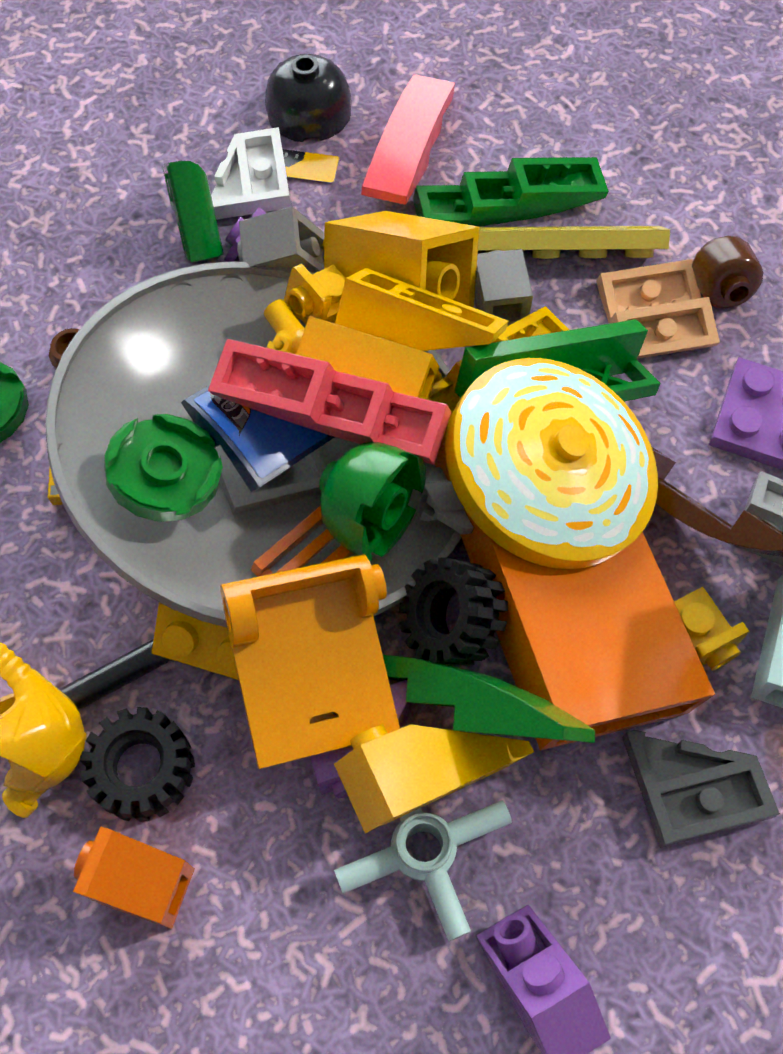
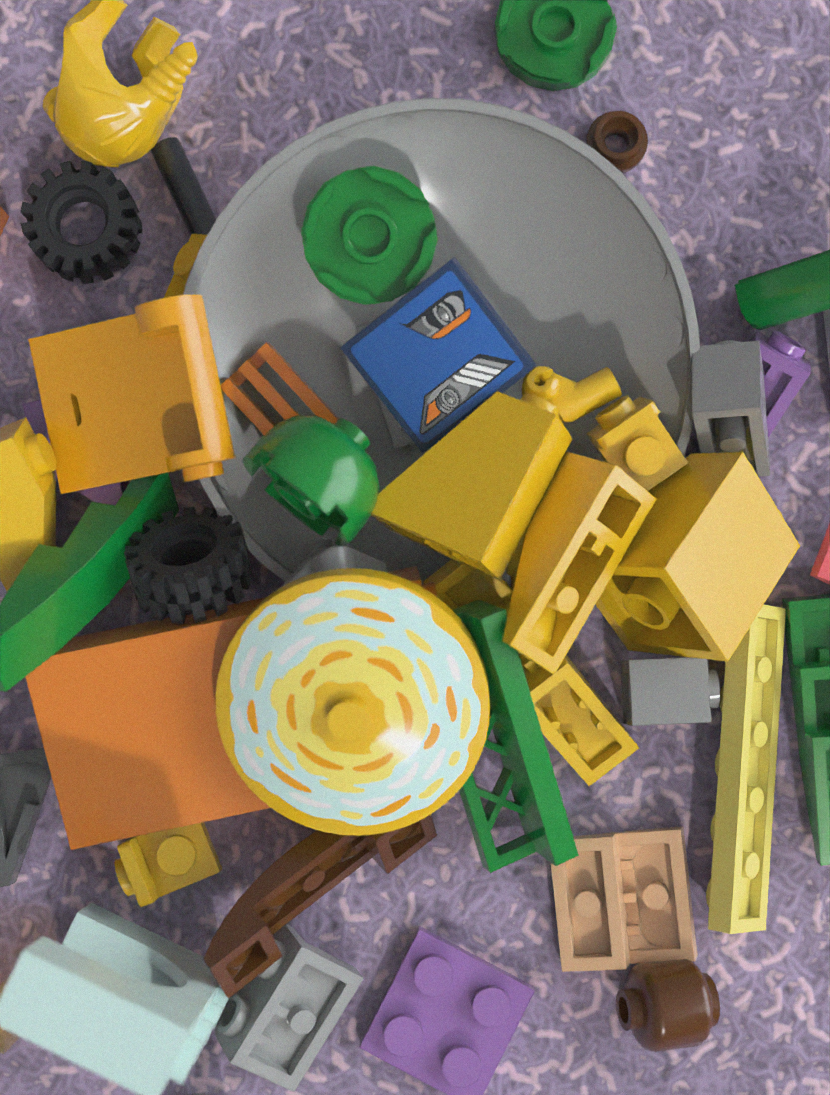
camera: 95 degrees right, 20 degrees up
(328, 400) = (431, 430): coral slope -> none

